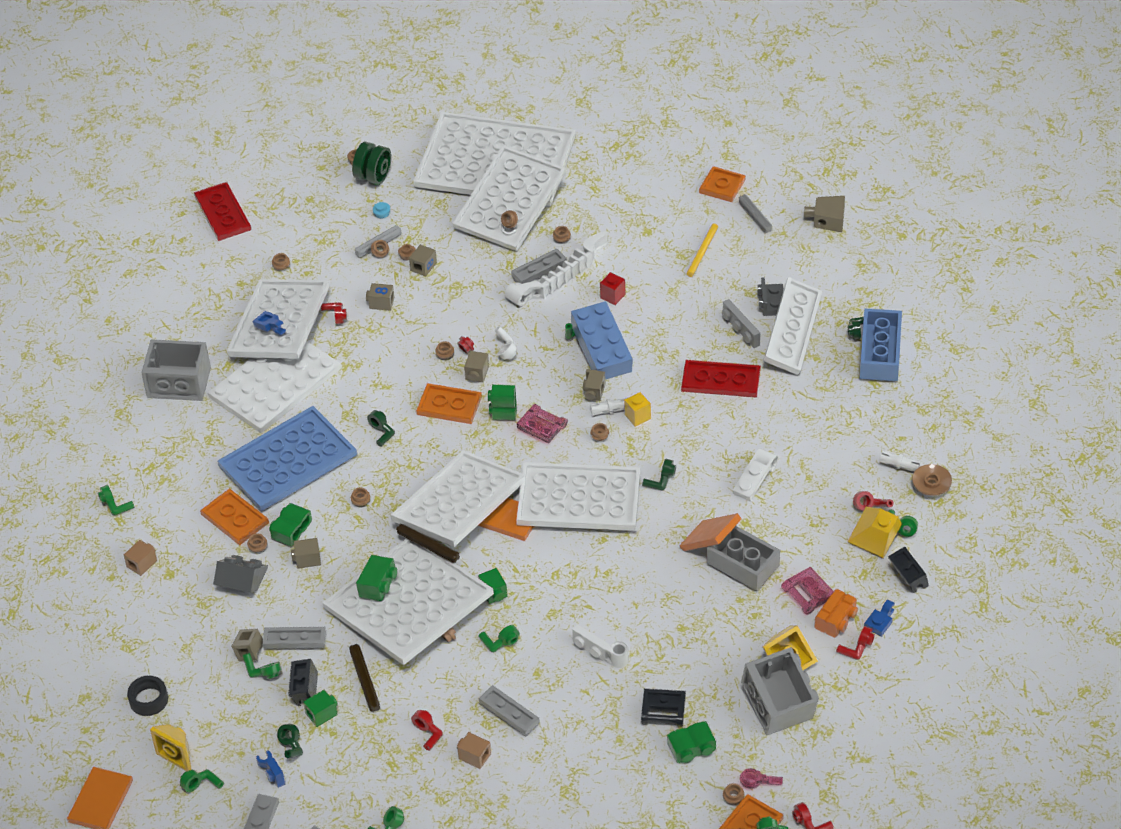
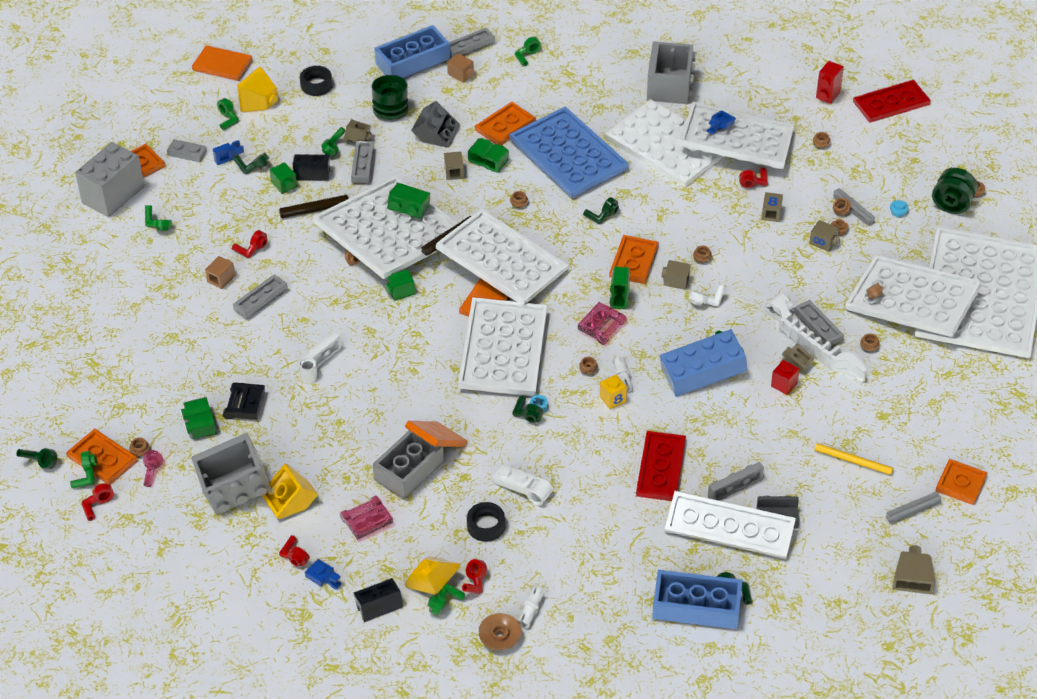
camera: 90 degrees right, 0 degrees up
(94, 554) = (471, 42): none -> light grey plate
(115, 600) = (412, 52): none -> medium blue brick
(196, 612) = (390, 97): none -> dark green wheel
(203, 246) = (829, 82): none -> red brick
(257, 542) = (471, 136): medium nougat plate -> none
(465, 344) = (707, 267): red plate -> none
(507, 636) = (340, 293): green plate -> none
(583, 282) = (798, 357): none -> dark tan bracket
(594, 384) = (647, 360): dark tan brick -> none
(651, 473) = (542, 400): none -> medium azure bush
(808, 487) = (484, 509): none -> black tyre
(835, 613) = (331, 535): orange brick -> none

